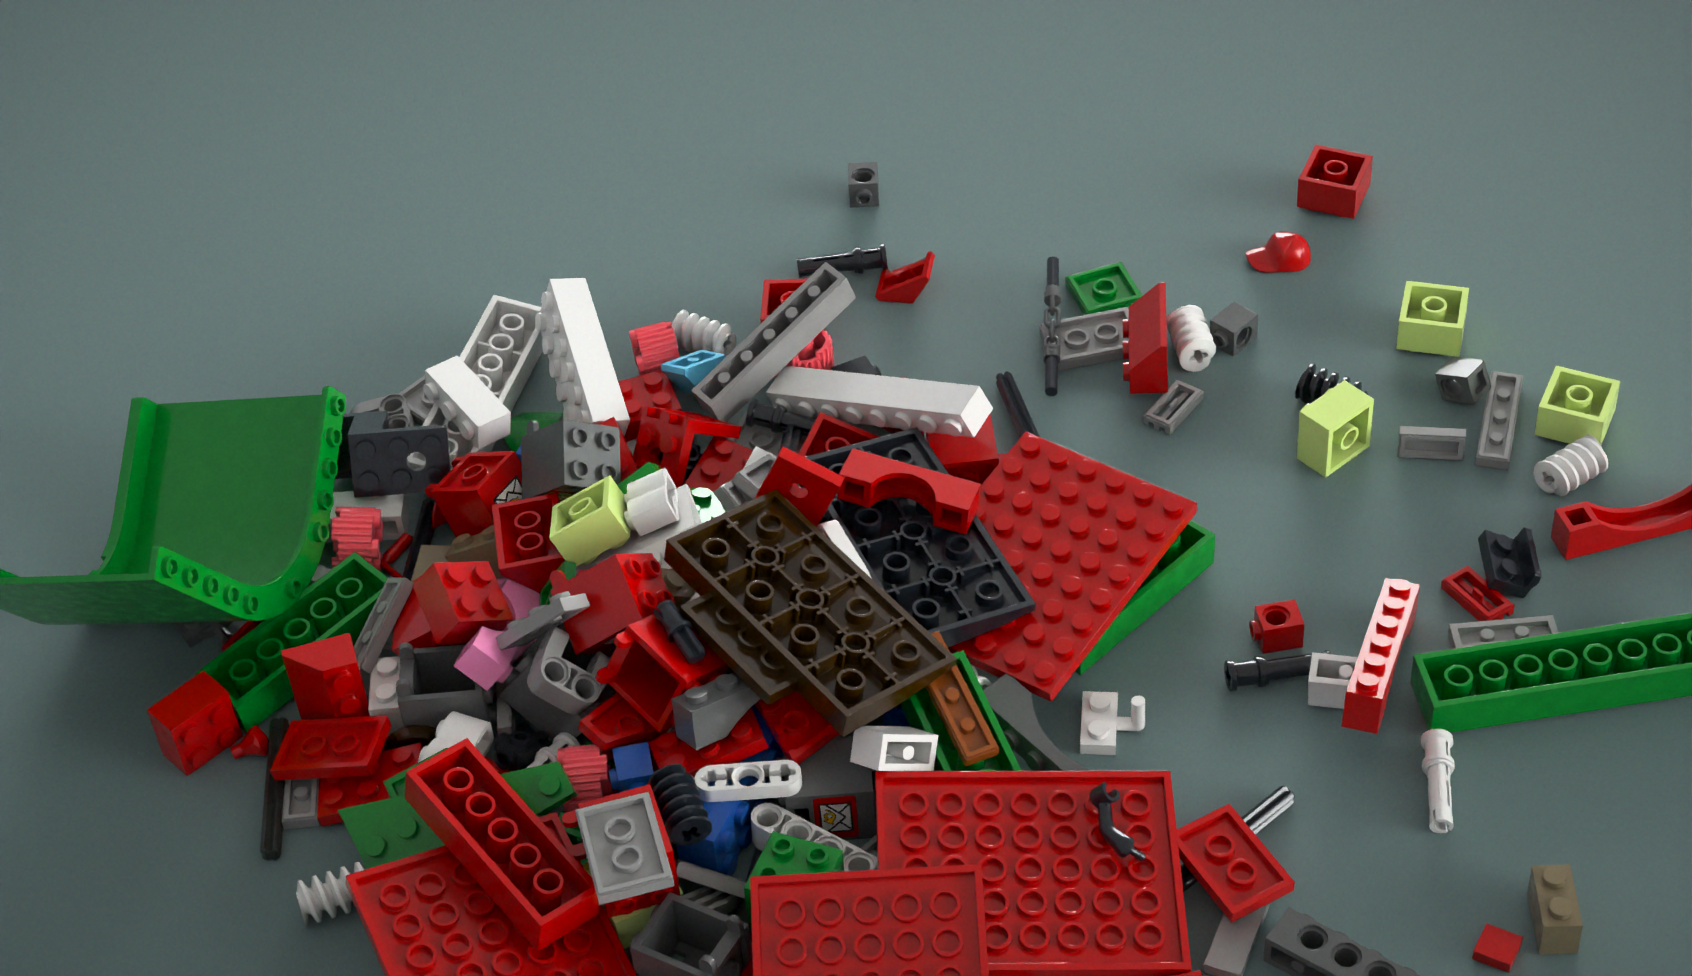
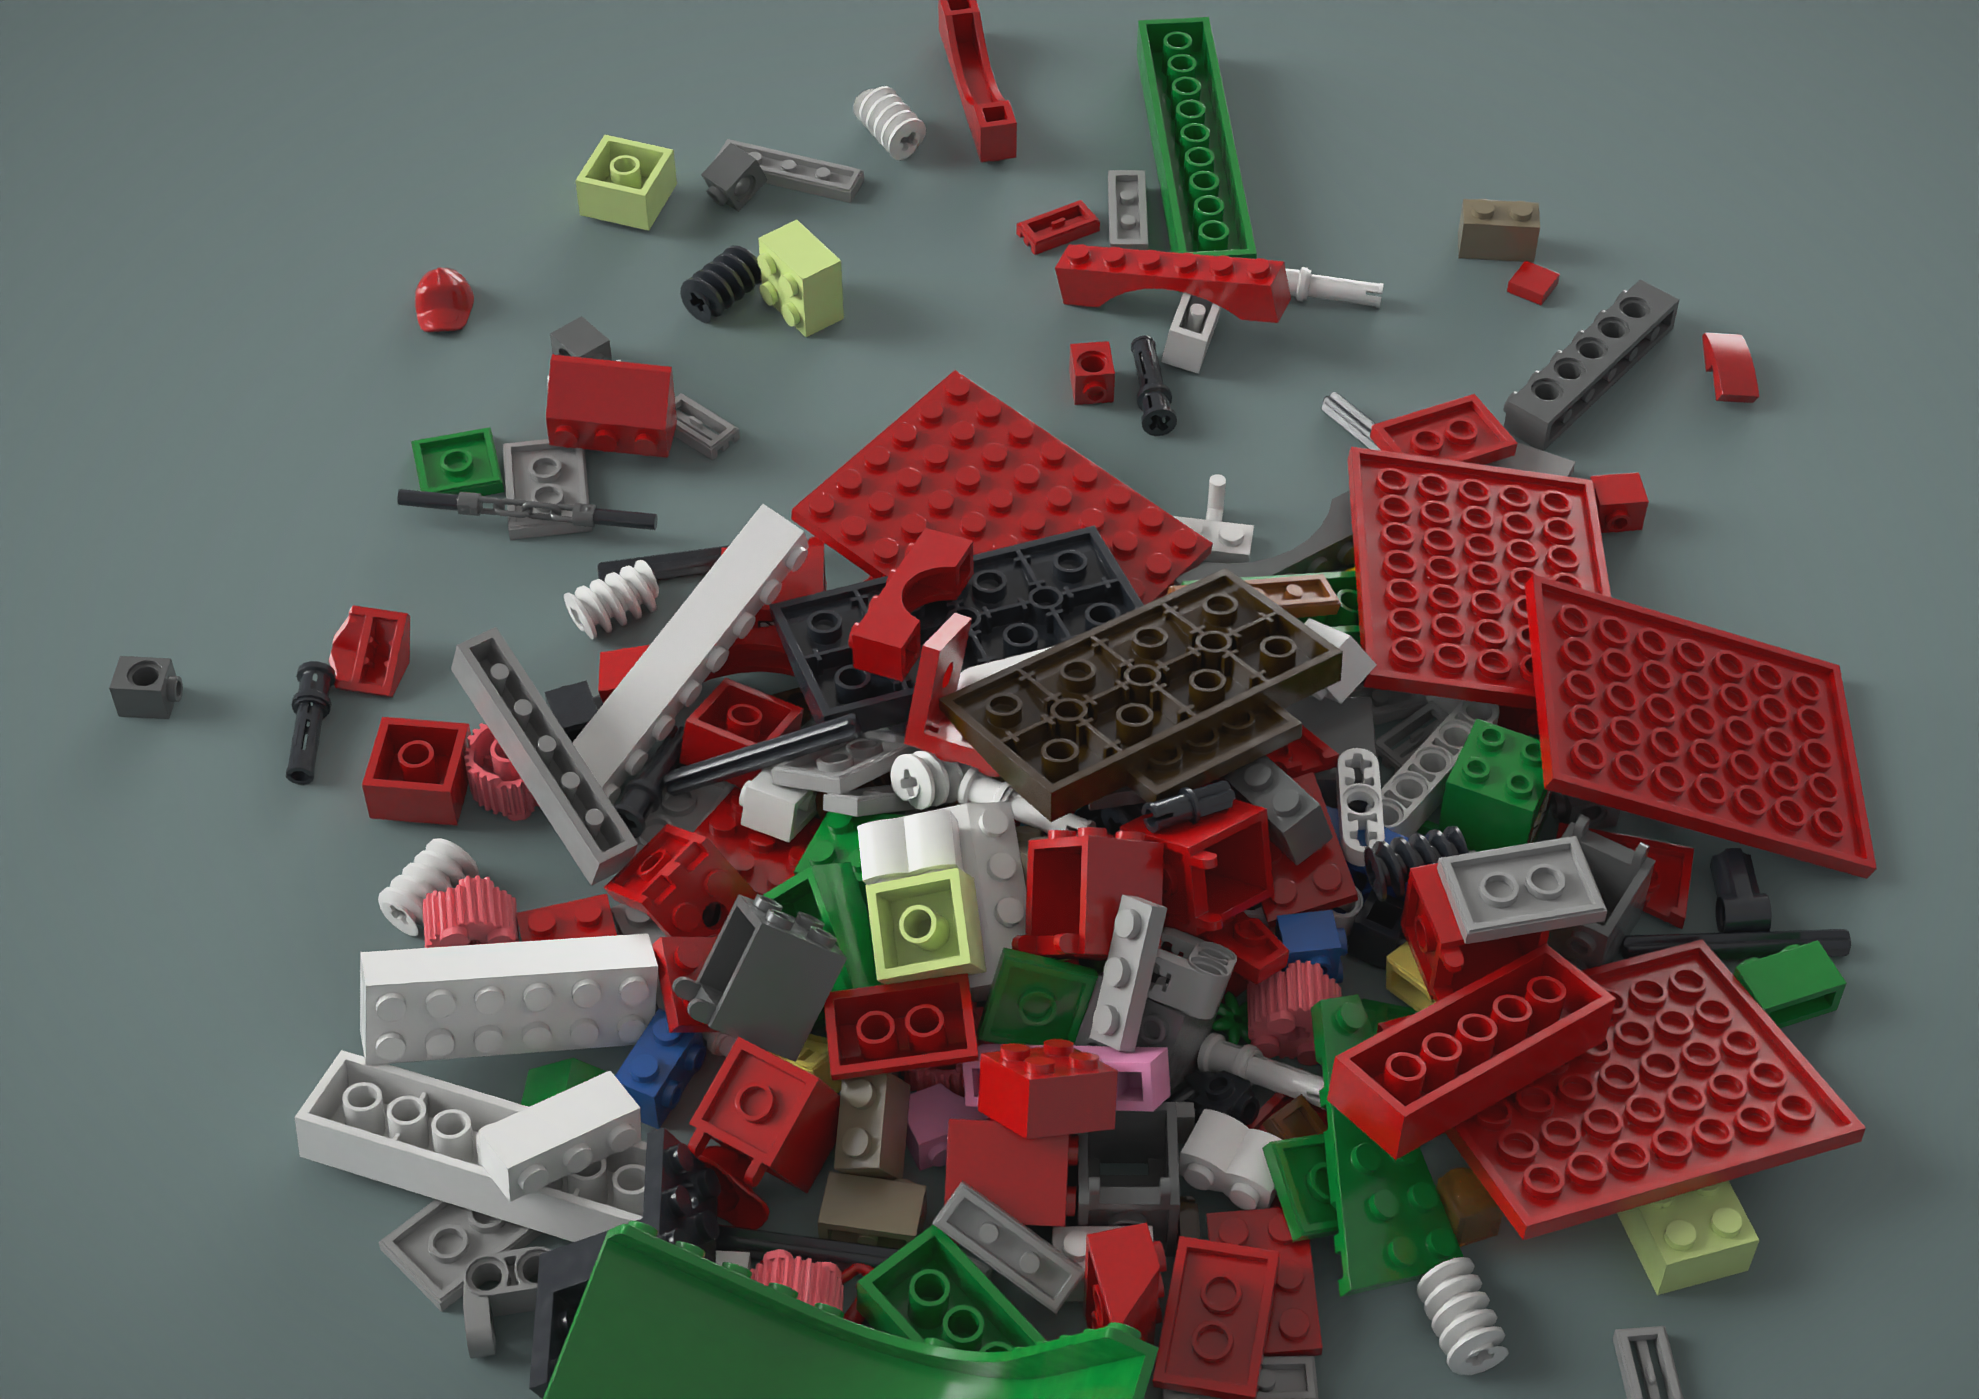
camera: 90 degrees left, 5 degrees up
(691, 368) = (526, 874): medium azure slope -> none
(959, 369) = (613, 598): none -> white piece
(1115, 838) = (1461, 490): black piece -> none
(1334, 181) = (343, 226): red brick -> none
(1431, 443) = (827, 213): light grey tile -> none
(1509, 562) = (1023, 185): black bracket -> none
(1576, 406) = (806, 100): yellowish green brick -> none

